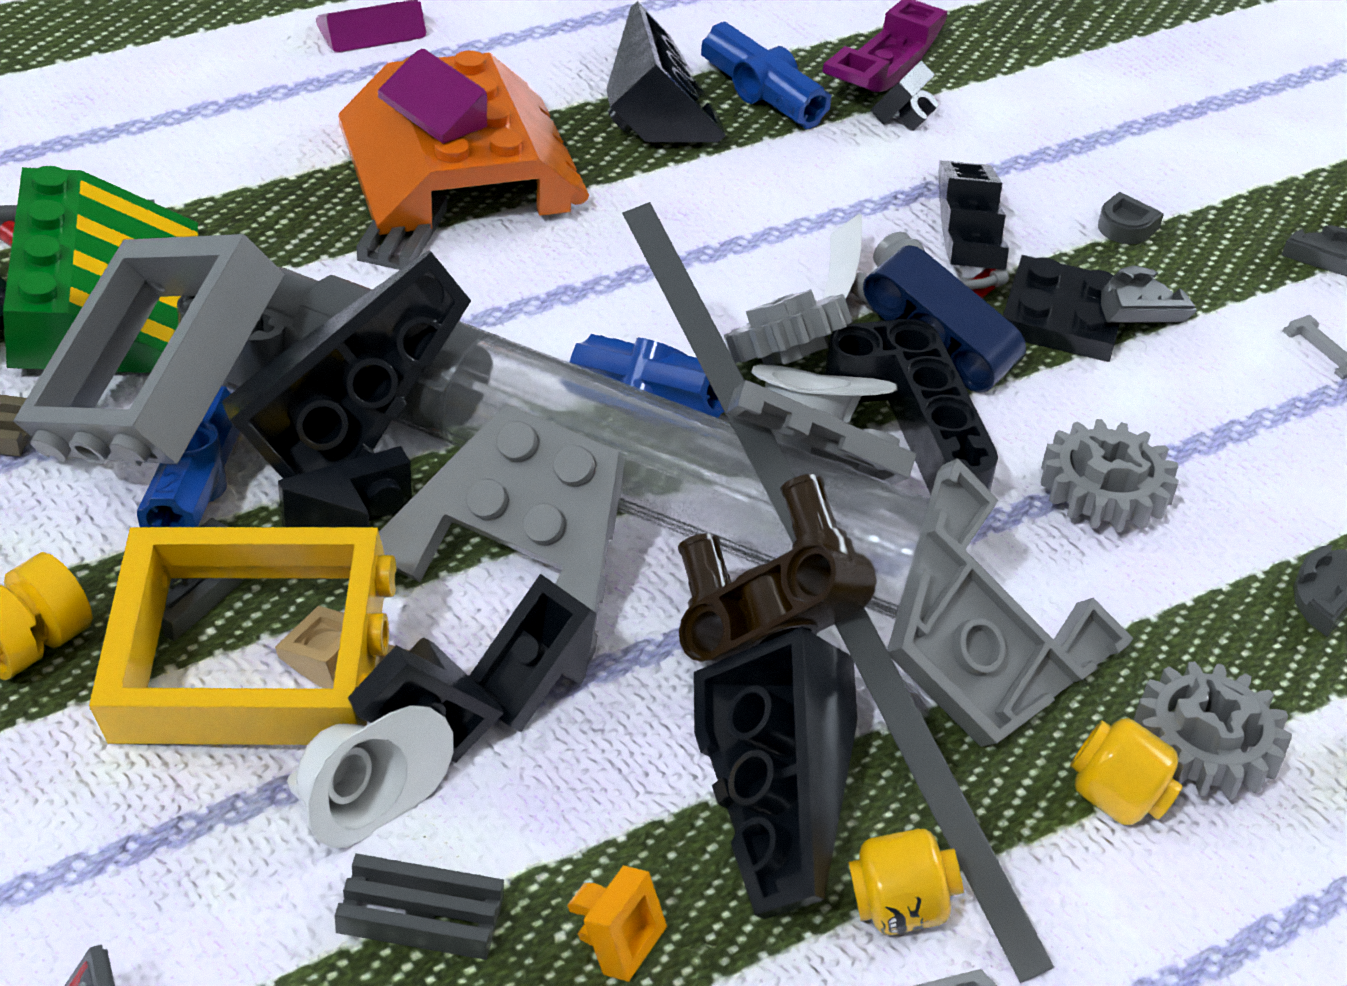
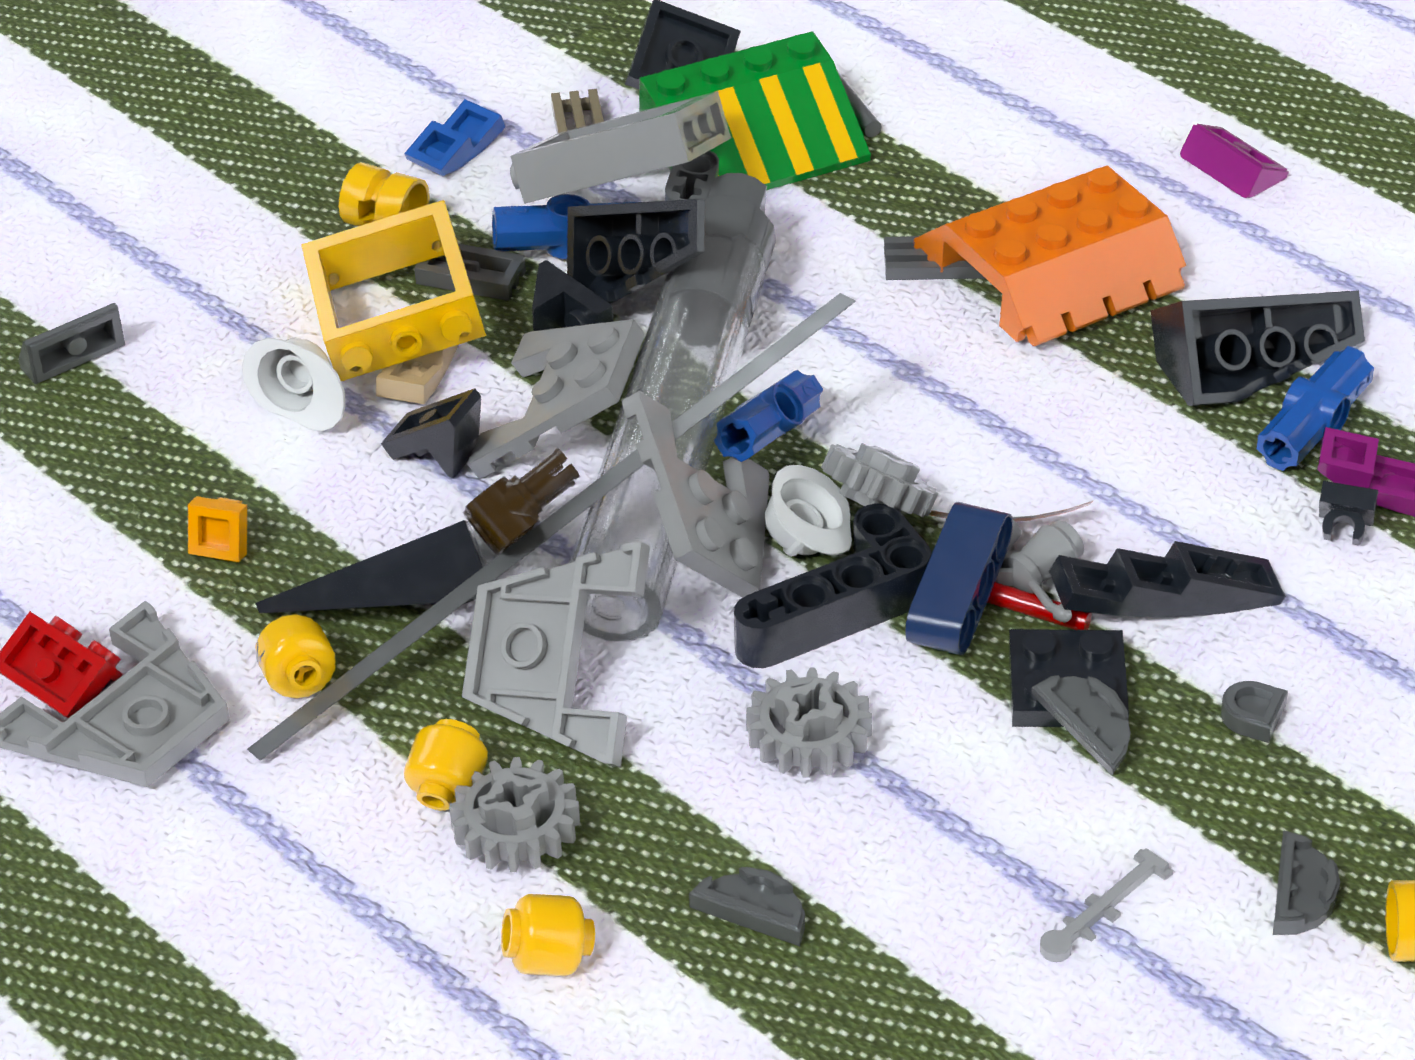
camera: 80 degrees right, 0 degrees up
(423, 894) = (217, 420): dark grey tile -> none
(430, 680) = (366, 391): black slope -> none
(436, 97) = (1027, 192): magenta slope -> none

